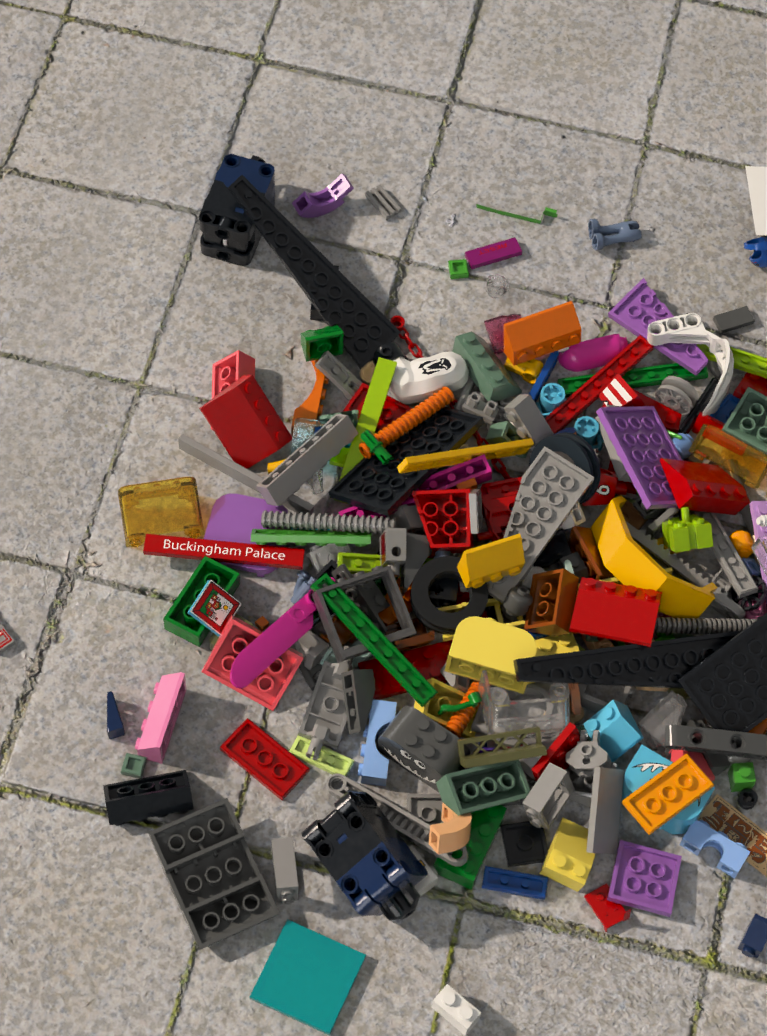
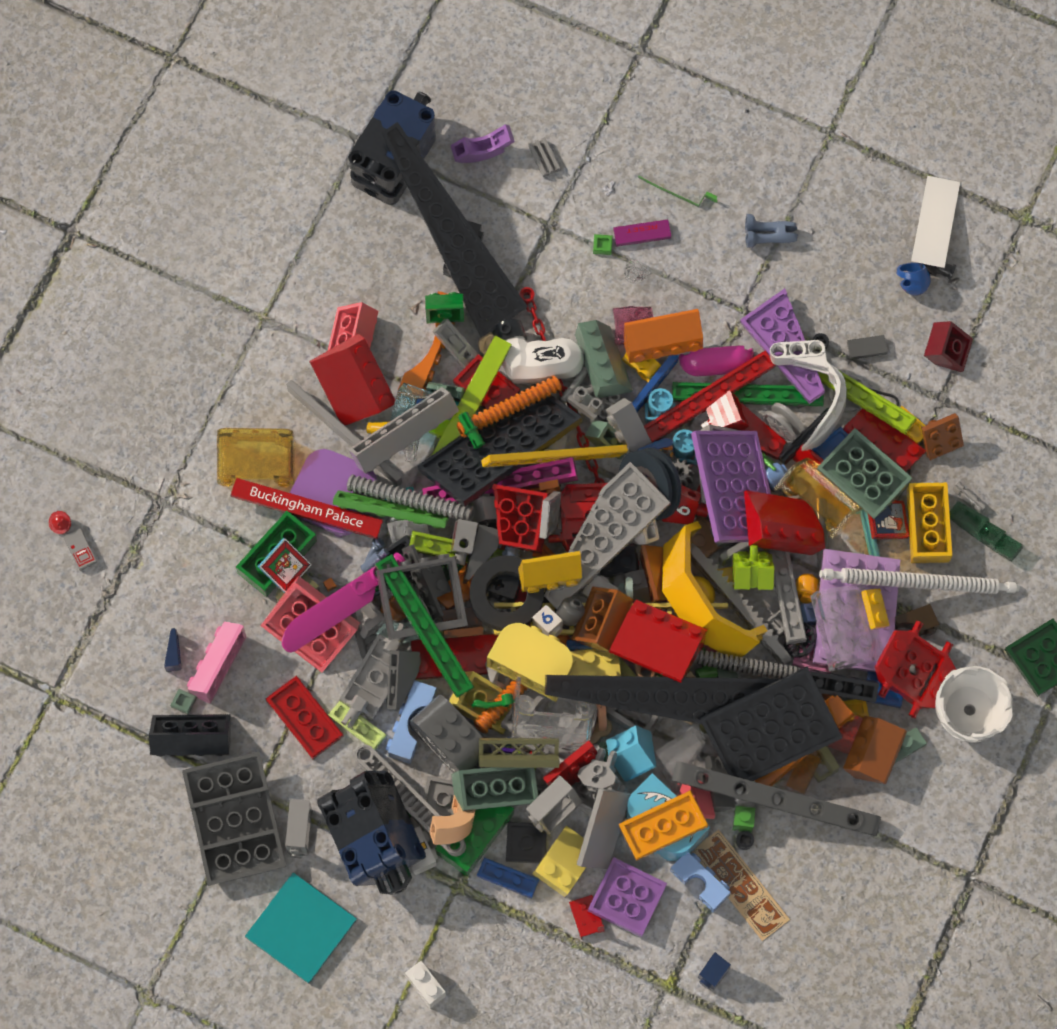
camera: 15 degrees right, 10 degrees up
(498, 611) = (548, 622): none -> white brick

